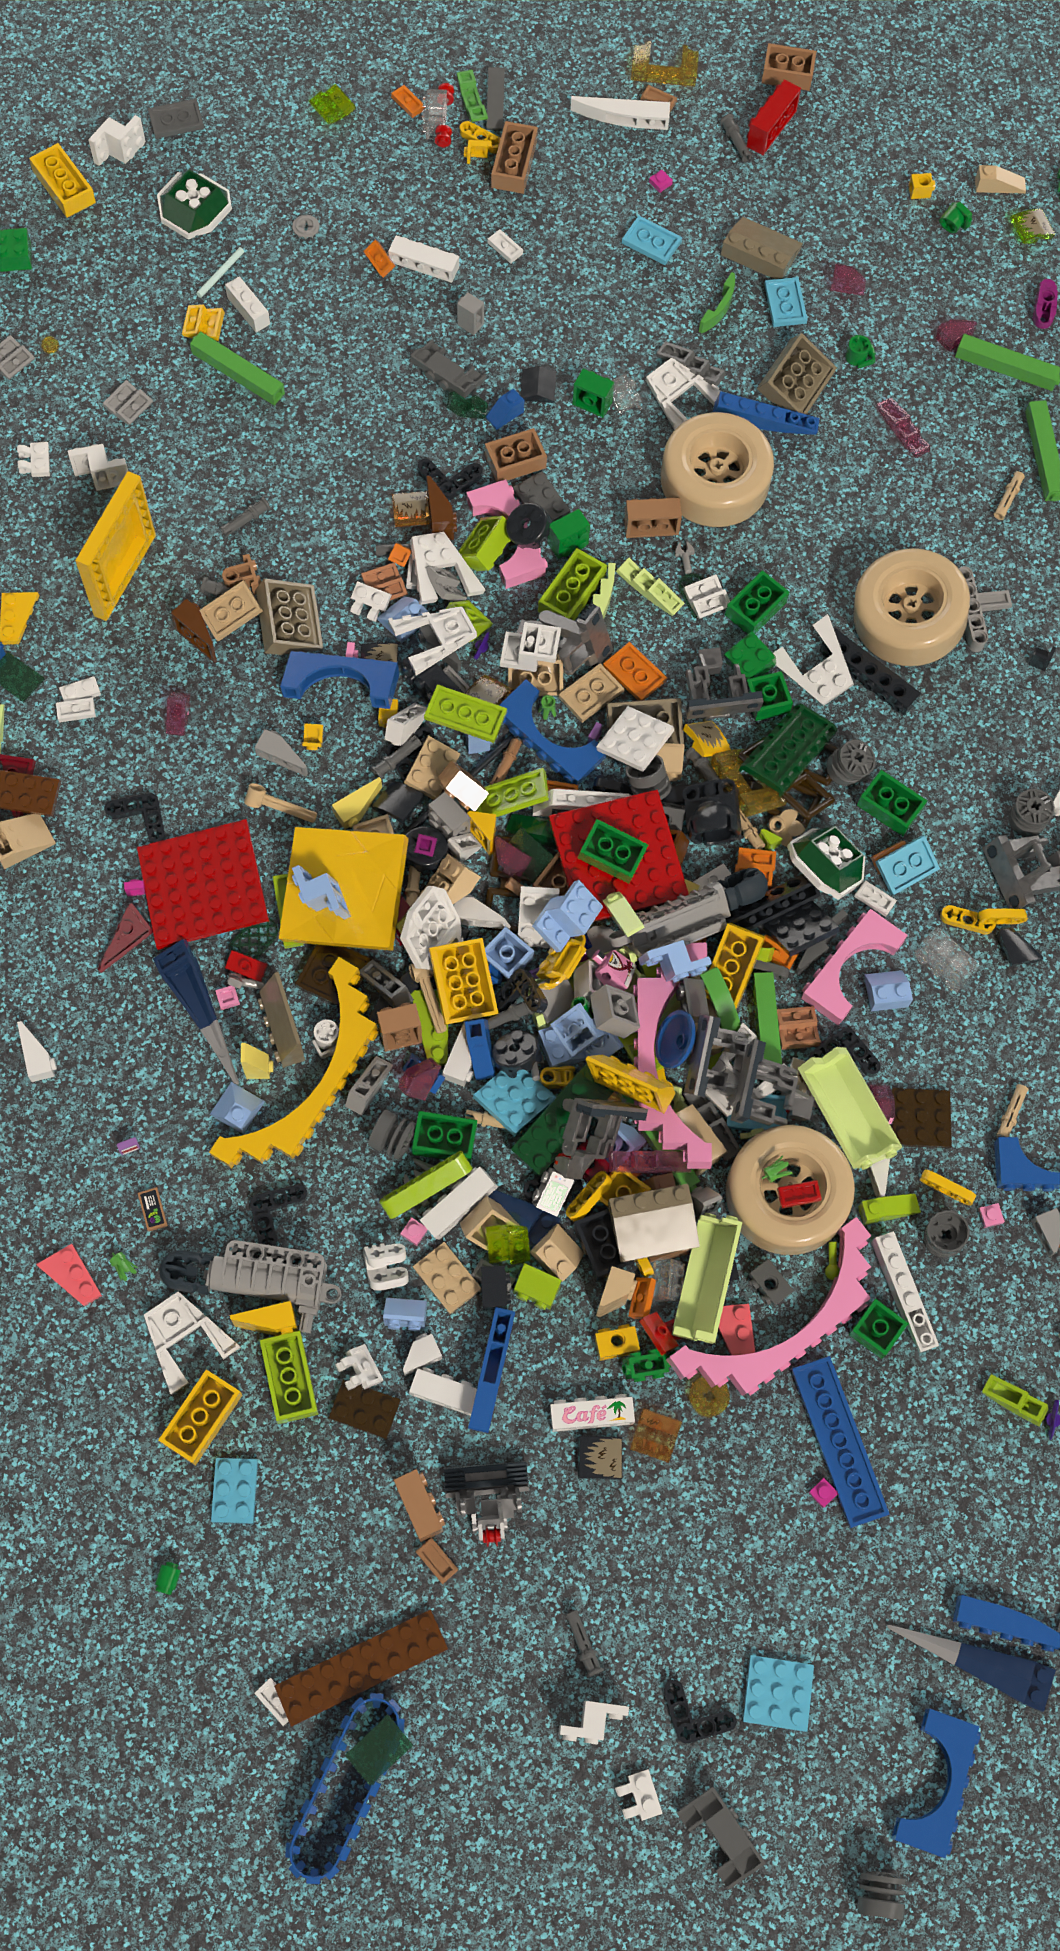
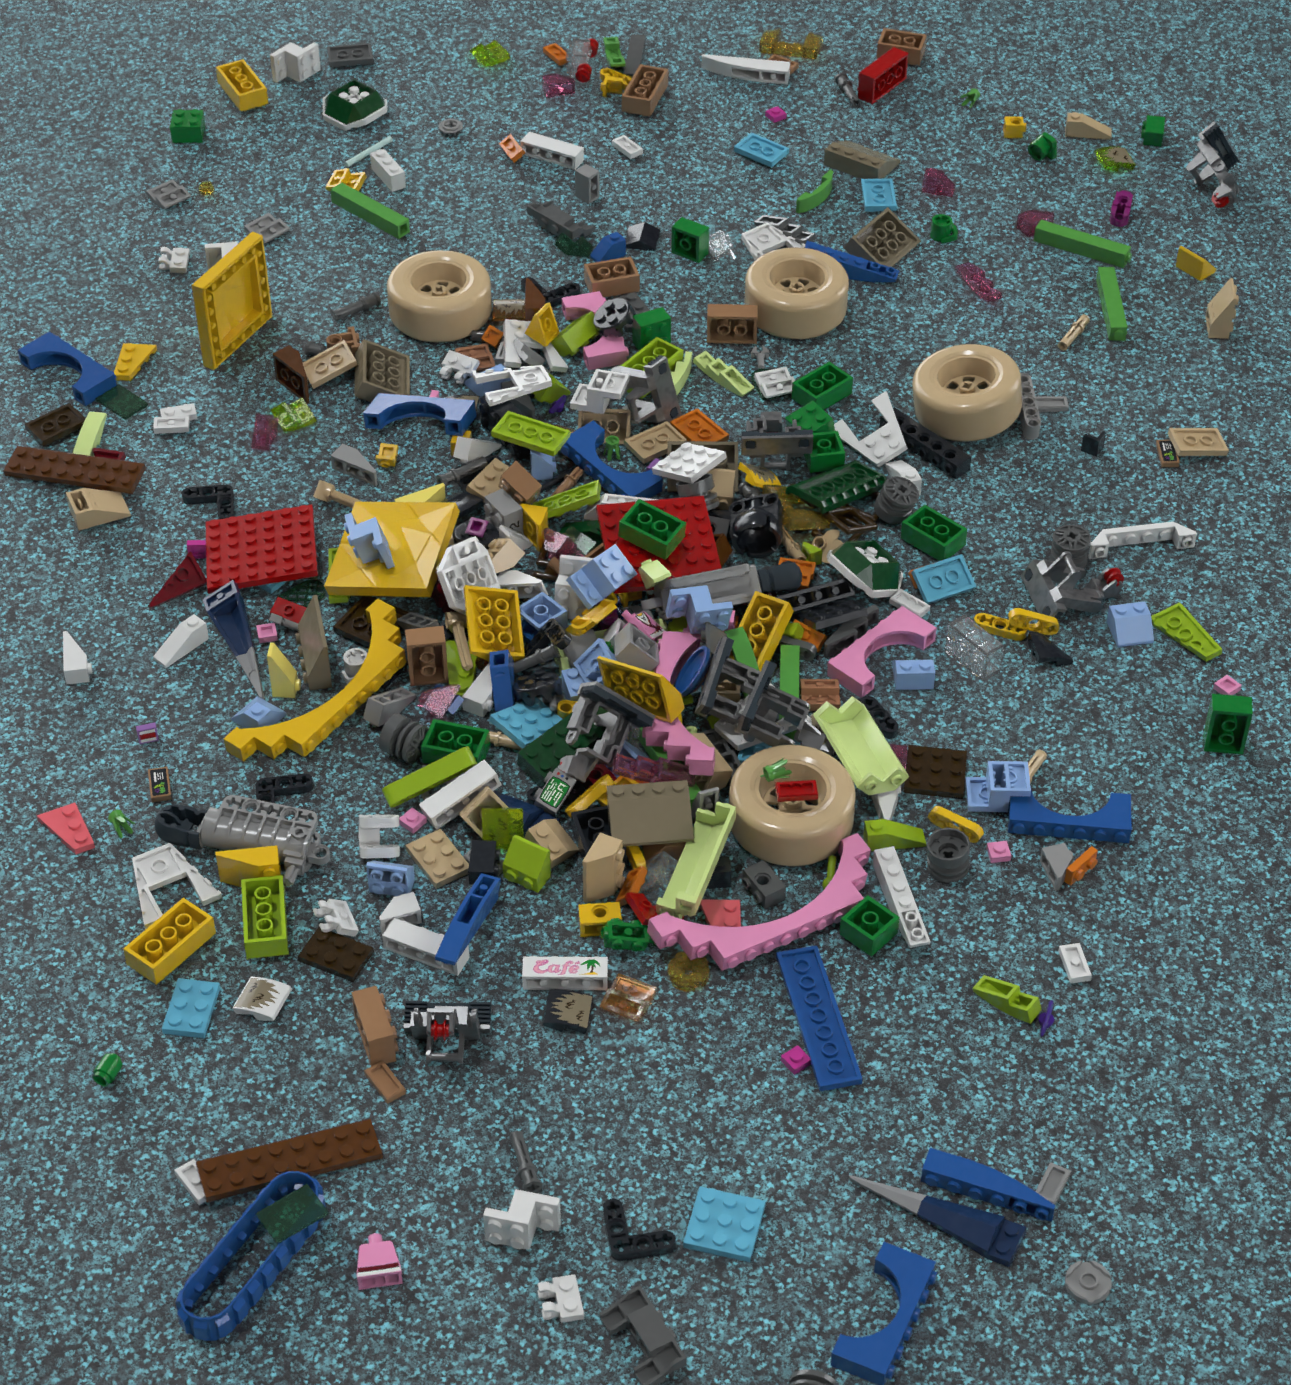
camera: 10 degrees right, 25 degrees down
(141, 1018) = (183, 640): none -> white slope
(203, 683) = (293, 416): none -> clear neon green slope
(302, 1474) = (262, 998): none -> slope
(324, 472) = (439, 296): none -> tan wheel
(415, 153) = (557, 85): none -> clear pink slope
(454, 544) = (543, 326): none -> yellow slope
(464, 1778) = (378, 1264): none -> bright pink torso
(852, 719) = (902, 469): none -> white slope
(872, 137) = (972, 95): none -> bright green piece
(986, 1141) = (994, 790): none -> light blue bracket

